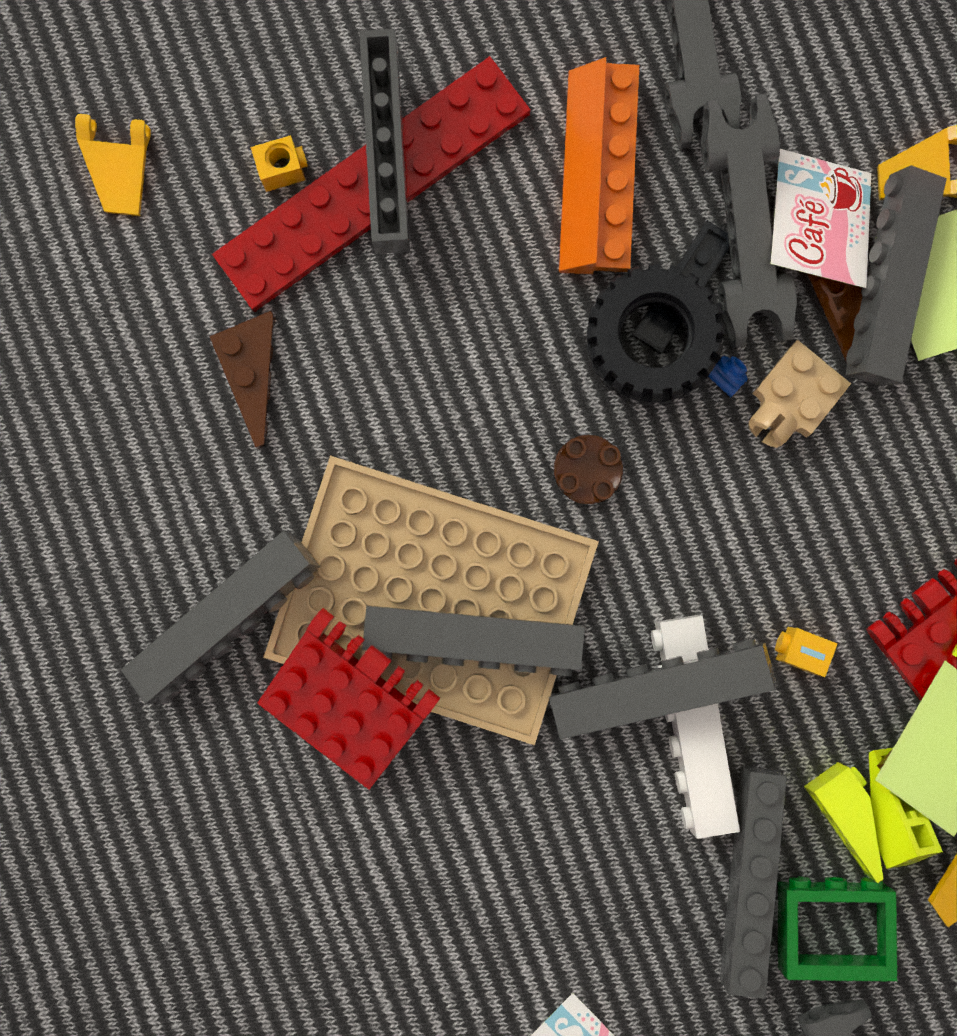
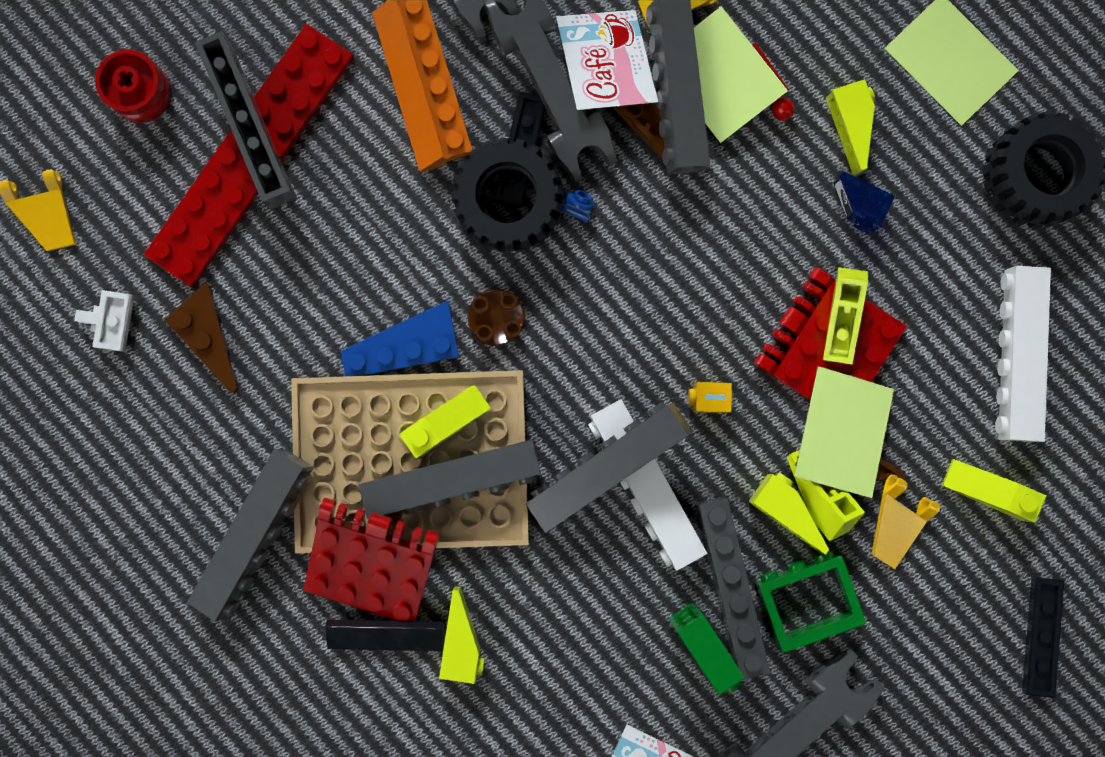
camera: 20 degrees left, 0 degrees up
(147, 315) = (109, 320): none -> white hinge
(269, 58) = (133, 86): none -> red wheel
(269, 153) = (159, 161): yellow brick -> none
(333, 789) = (385, 635): none -> black tile
(413, 839) = (461, 646): none -> neon yellow slope
(476, 464) = (411, 343): none -> blue wing
(490, 569) = (444, 422): none -> neon yellow slope
(703, 945) = (707, 649): none -> green window
(796, 395) = (635, 203): tan plate -> none

